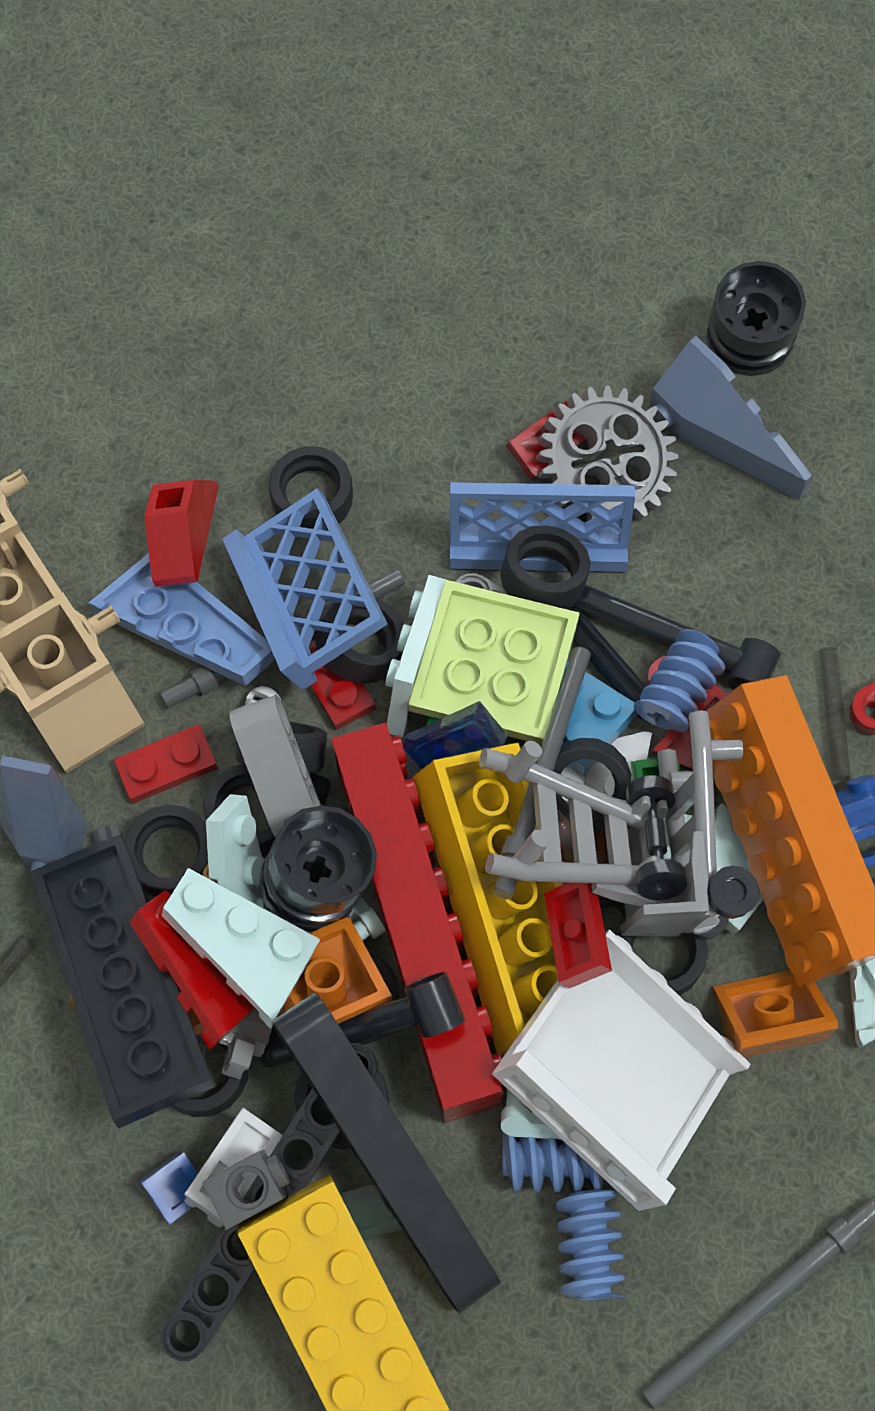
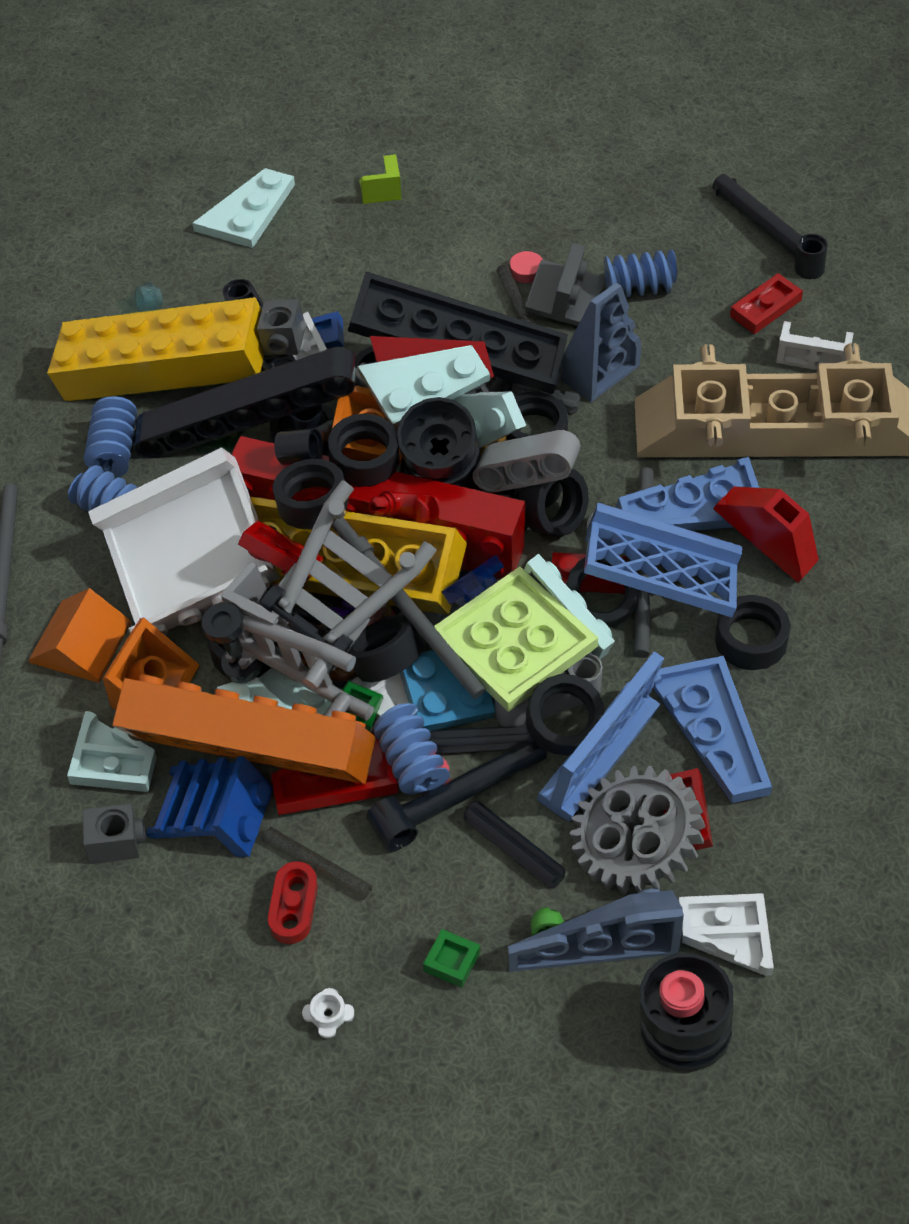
camera: 125 degrees right, 15 degrees down
(165, 764) = (600, 454): red plate -> none
(373, 900) = (364, 427): none -> black tyre
(416, 487) = (713, 720): none -> medium blue wing
(434, 858) = (413, 505): none -> red piece
(487, 908) = (301, 476): none -> black tyre
(506, 1322) = (111, 435): none -> medium blue piece
(637, 344) = (729, 929): none -> white wing
(687, 560) = (514, 844): none -> black axle
(745, 483) = (545, 919): none -> bright green hinge
(754, 315) = (681, 993): none -> coral tile
(780, 1138) = (81, 637): none -> orange slope
(837, 535) = (451, 958): none -> green plate

